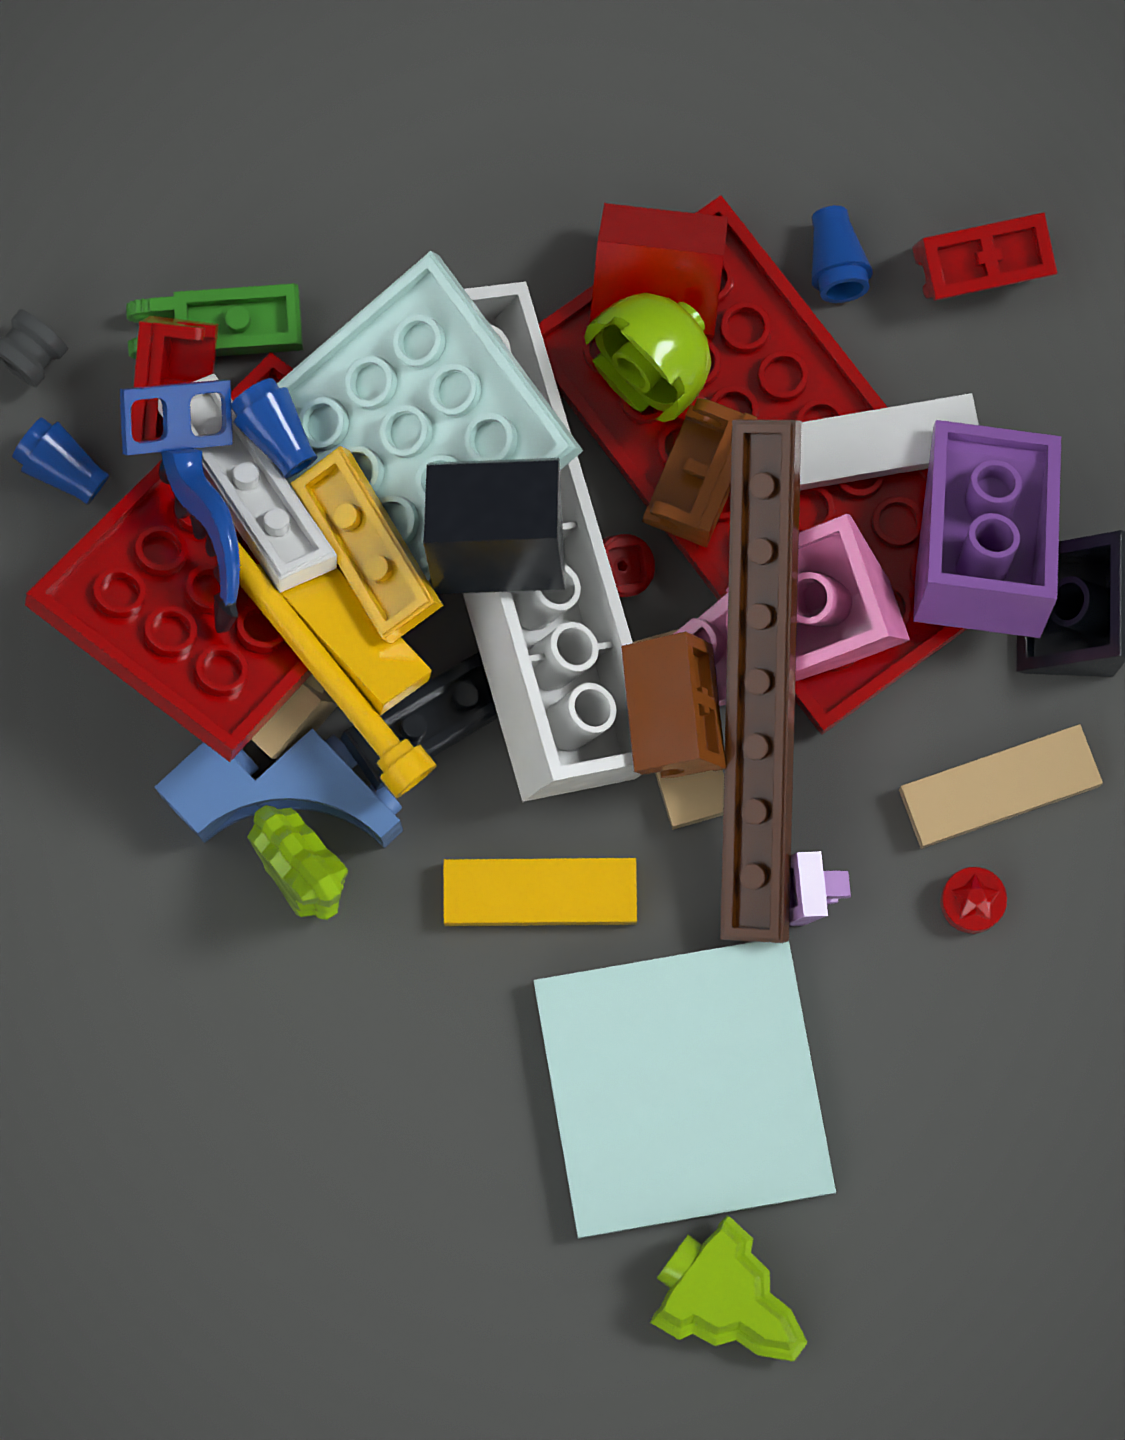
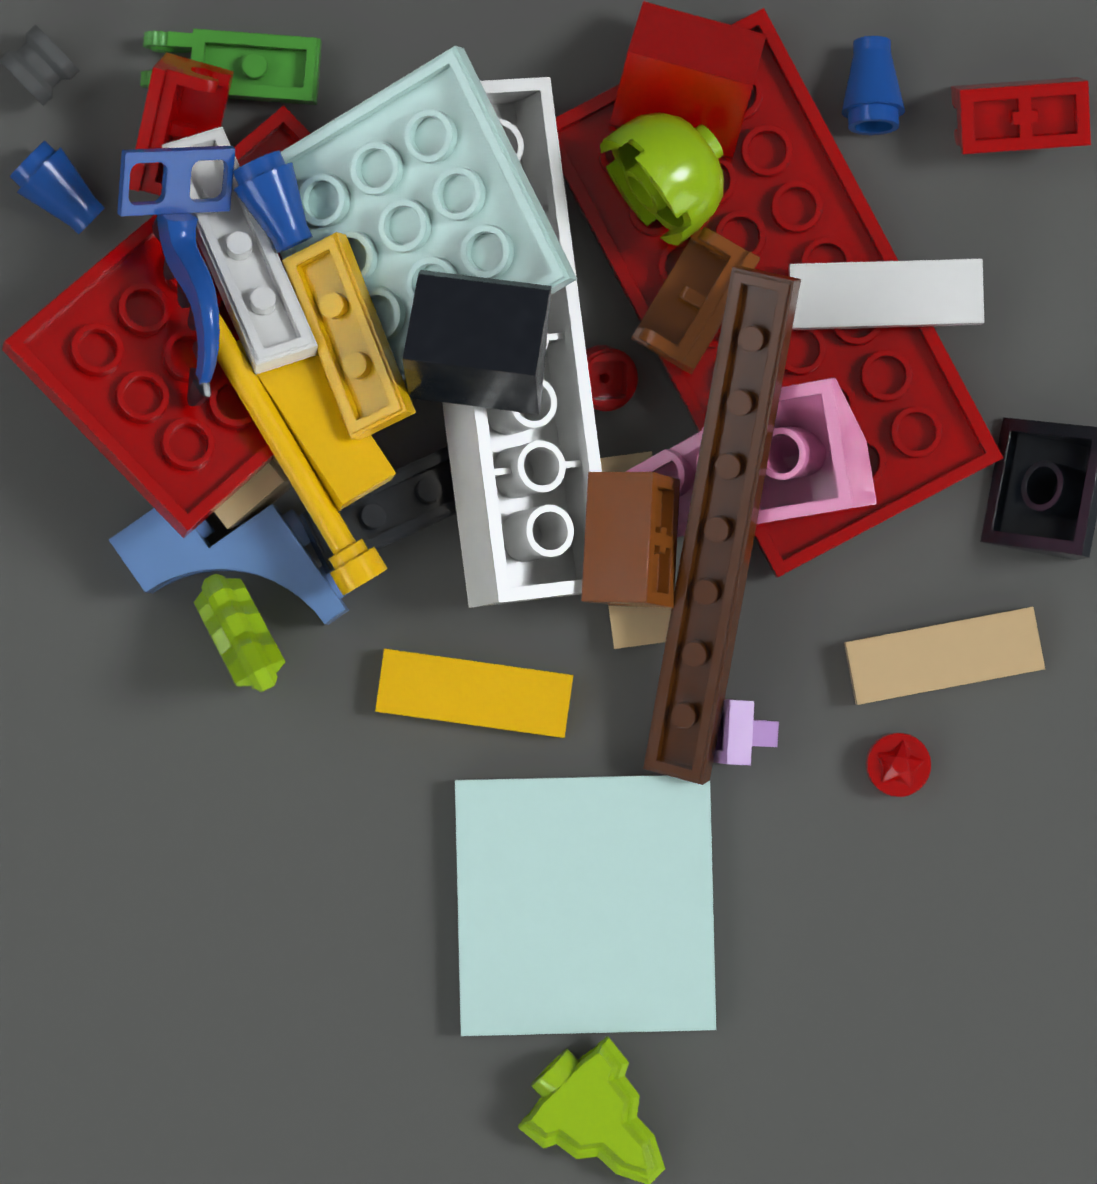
camera: 10 degrees right, 10 degrees up
(989, 530) = (975, 403): medium lavender slope -> none

